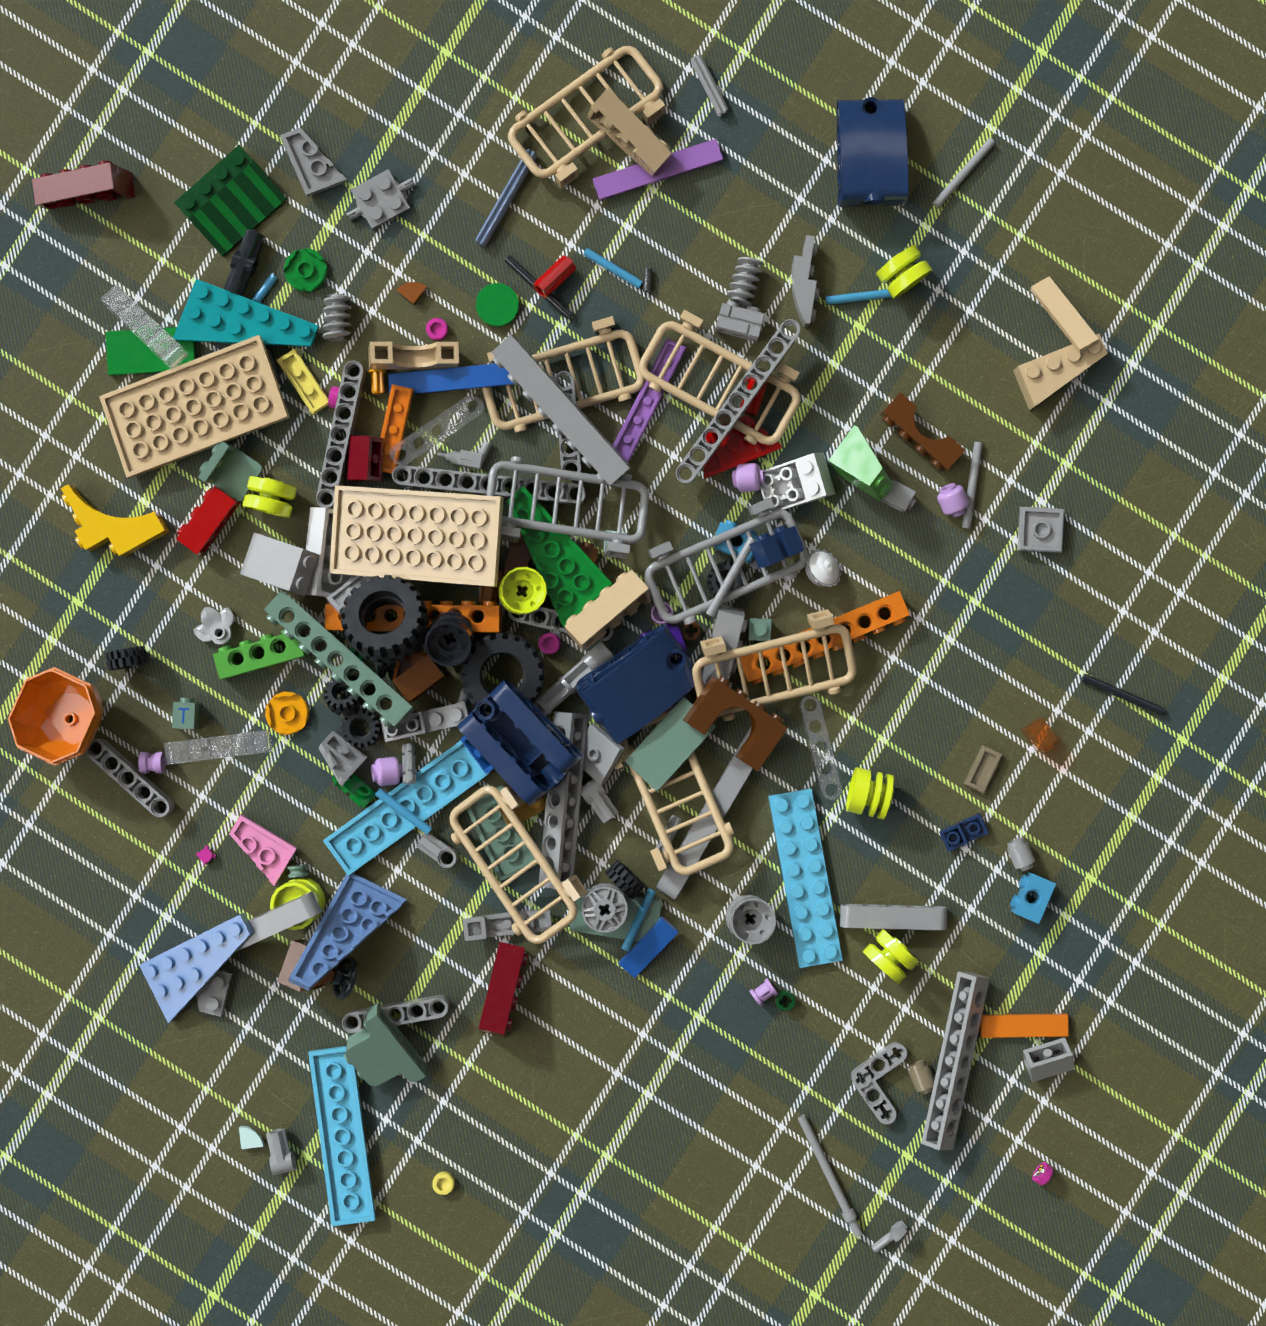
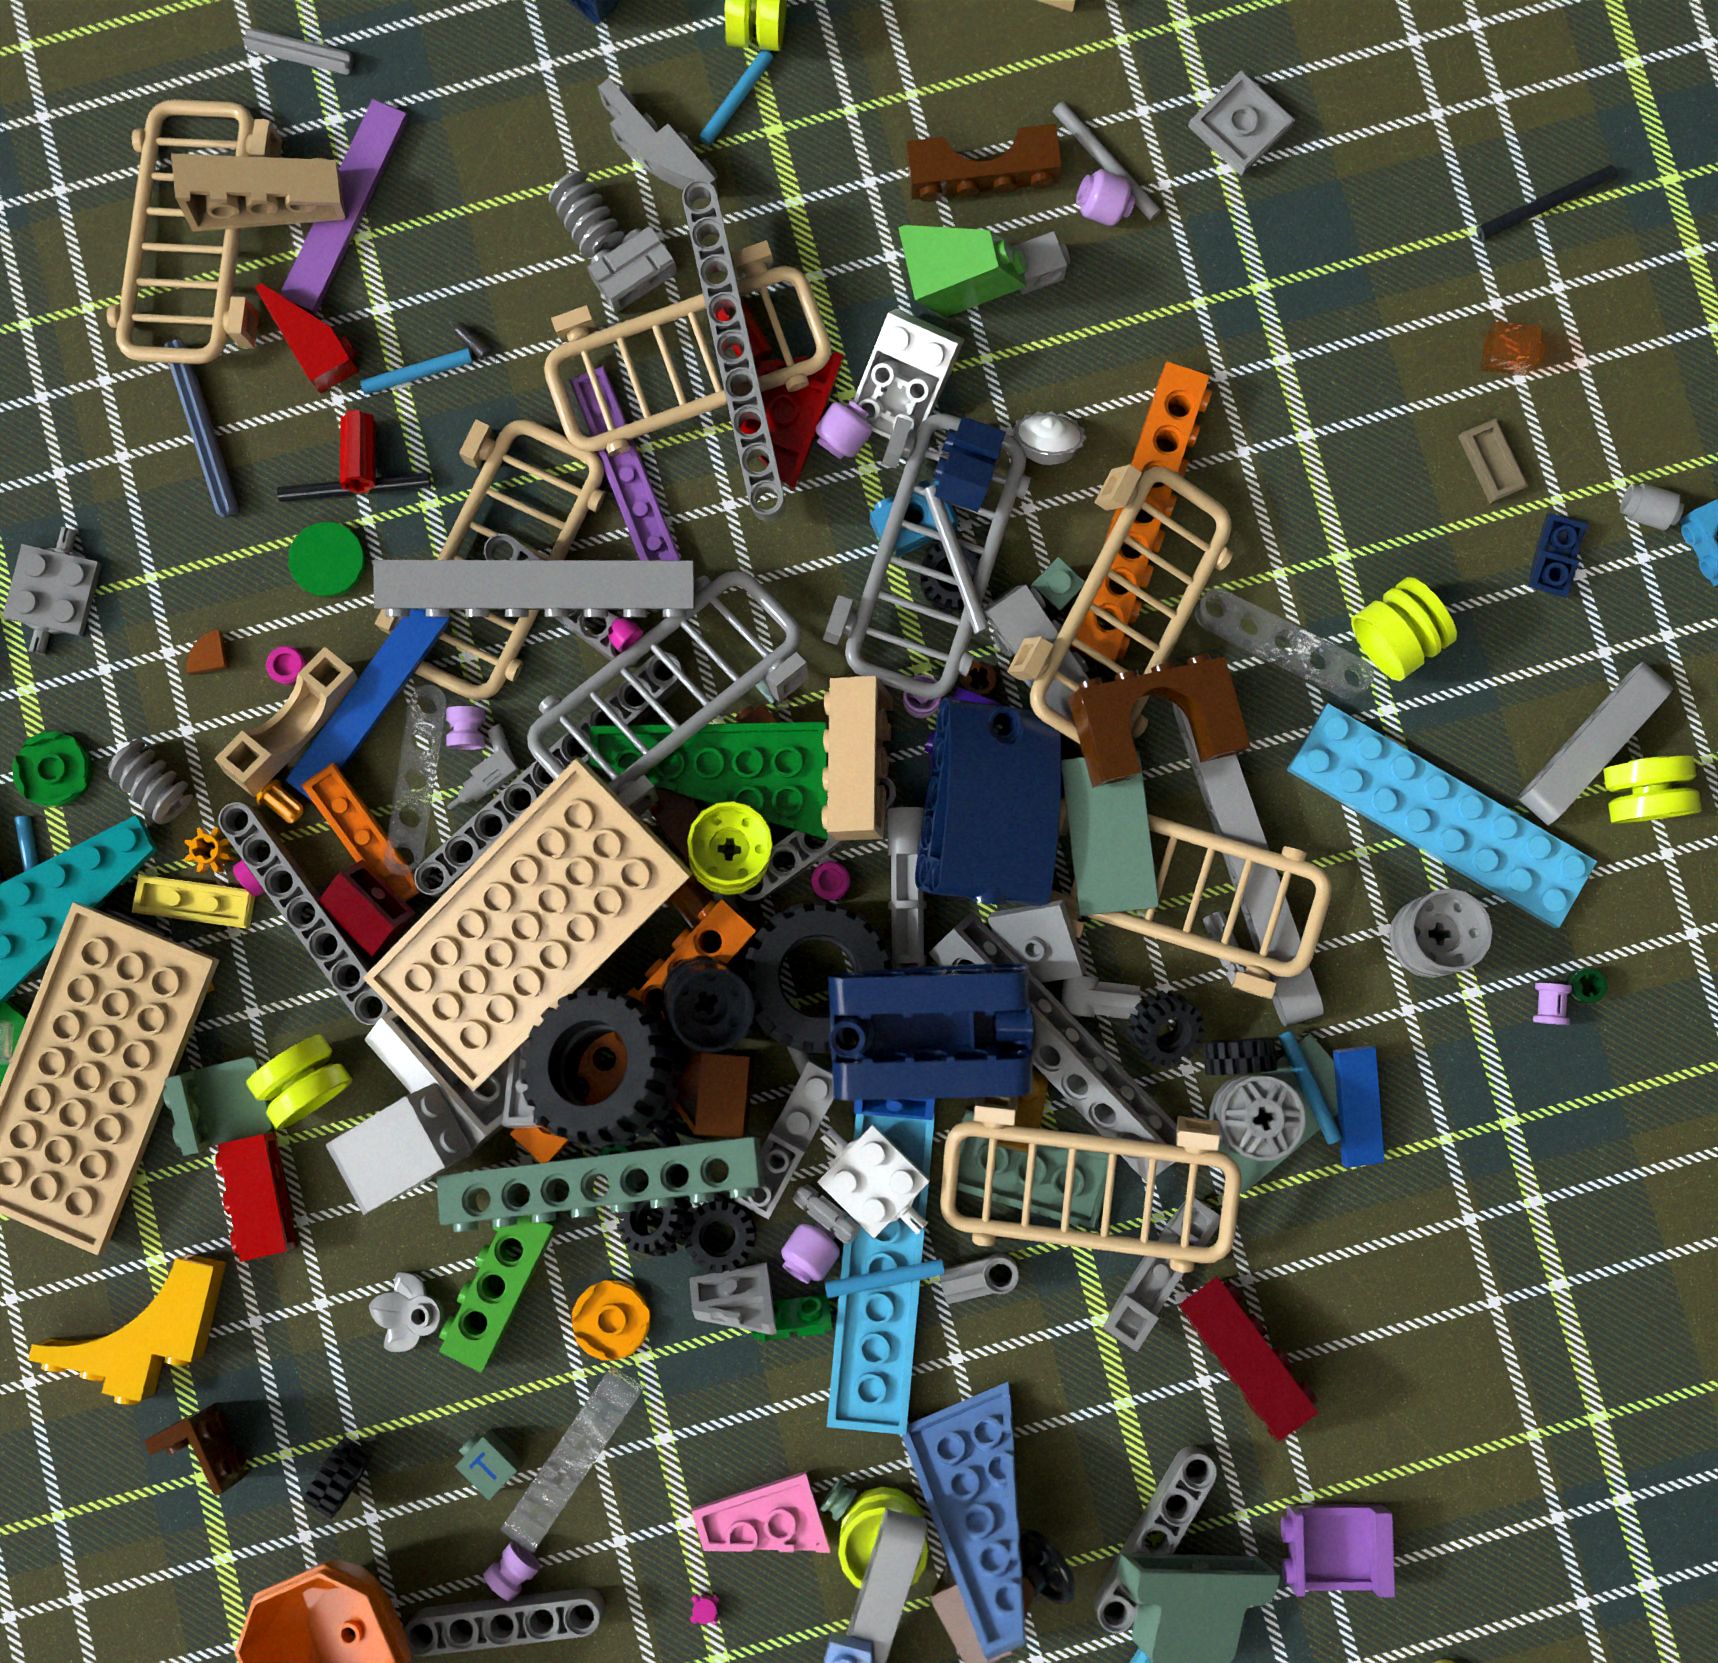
camera: 45 degrees left, 5 degrees down
(97, 589) = (211, 1443): none -> reddish brown bracket
(332, 375) = (200, 846): none -> light orange gear
(439, 771) = (873, 1180): none -> white plate
(458, 1092) = (1338, 1548): none -> medium lavender panel
(477, 431) = (465, 722): none -> lavender wheel
(575, 464) = (624, 633): none -> dark pink hinge
(584, 216) = (315, 344): none -> red slope
(607, 848) = (1153, 1016): none -> black tyre

